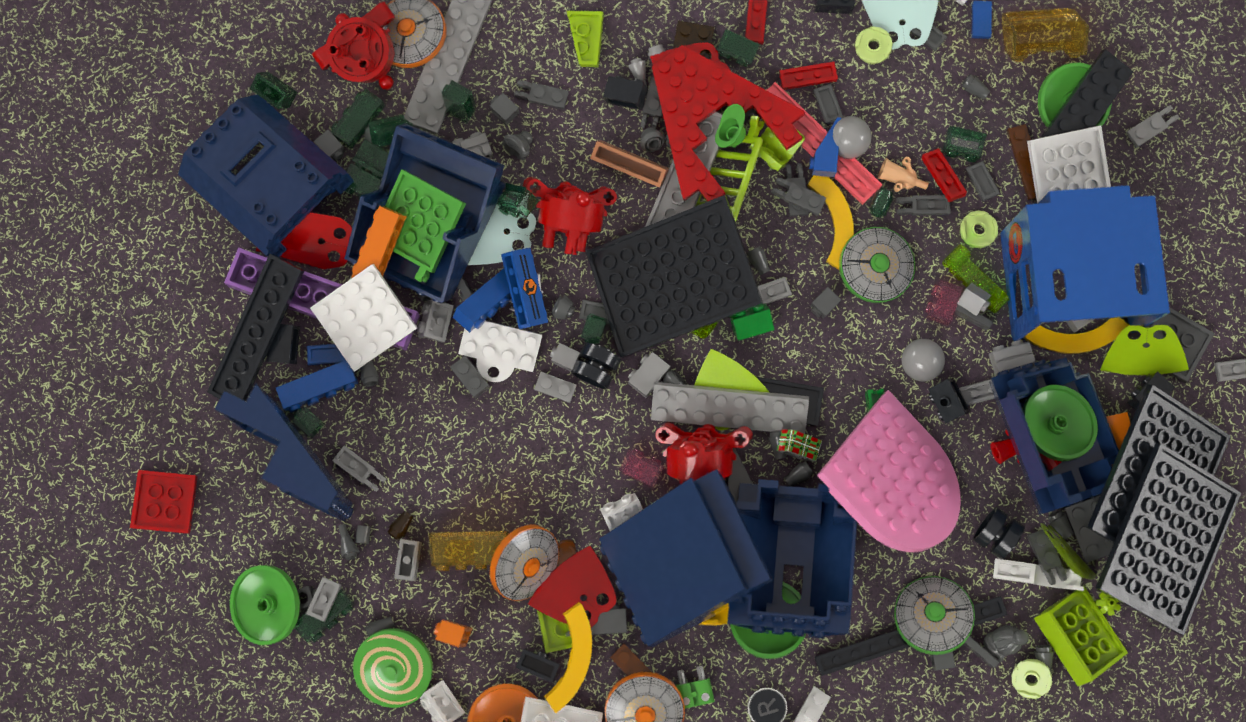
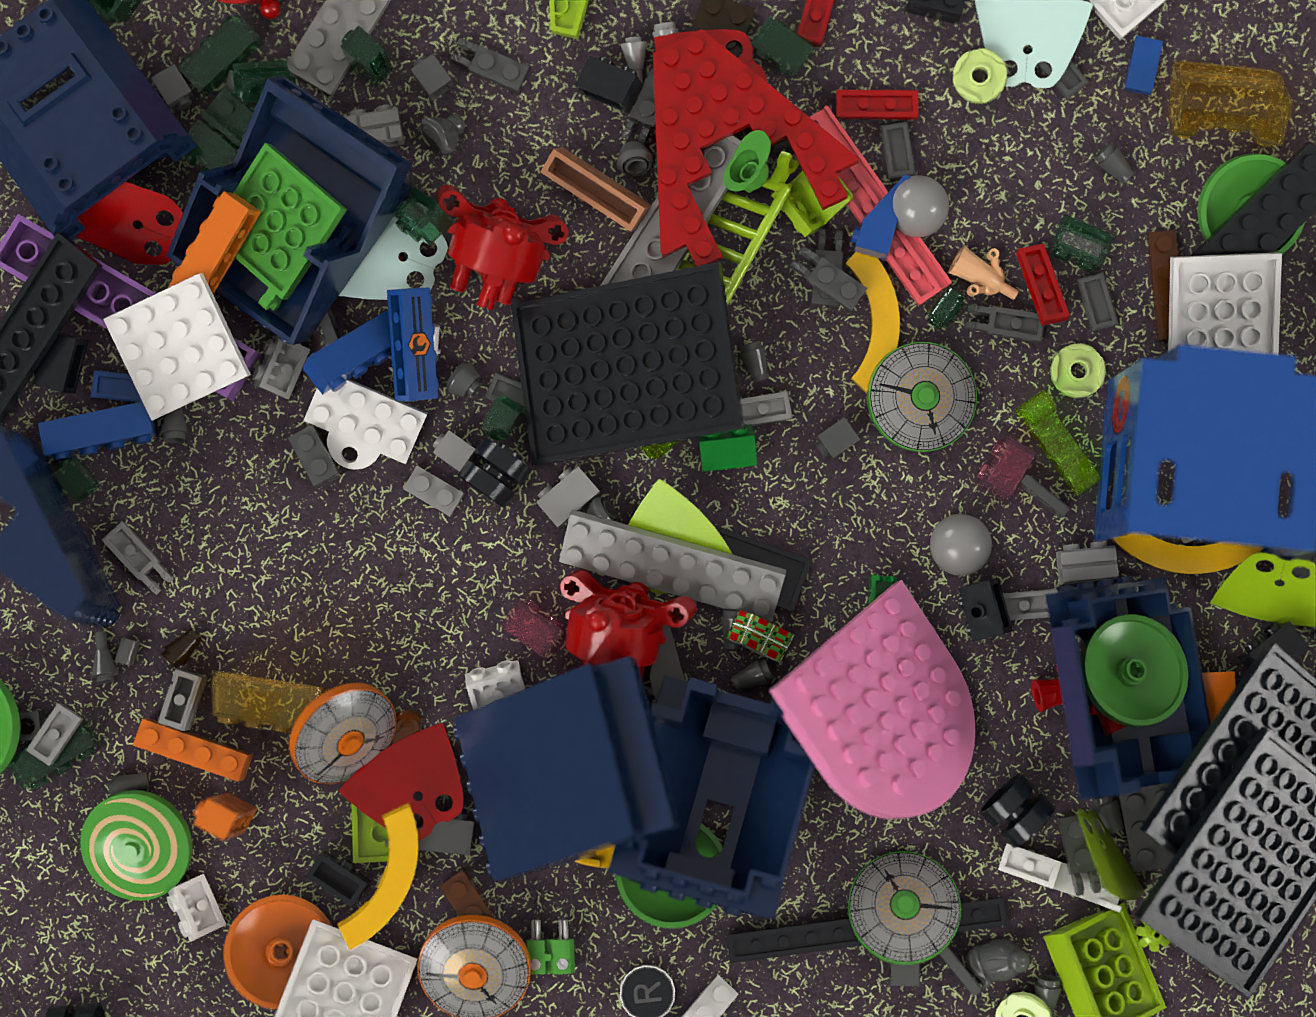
camera: 10 degrees right, 5 degrees up
(420, 594) = (193, 749): none -> orange brick
(974, 299) = (1049, 472): light grey brick -> none

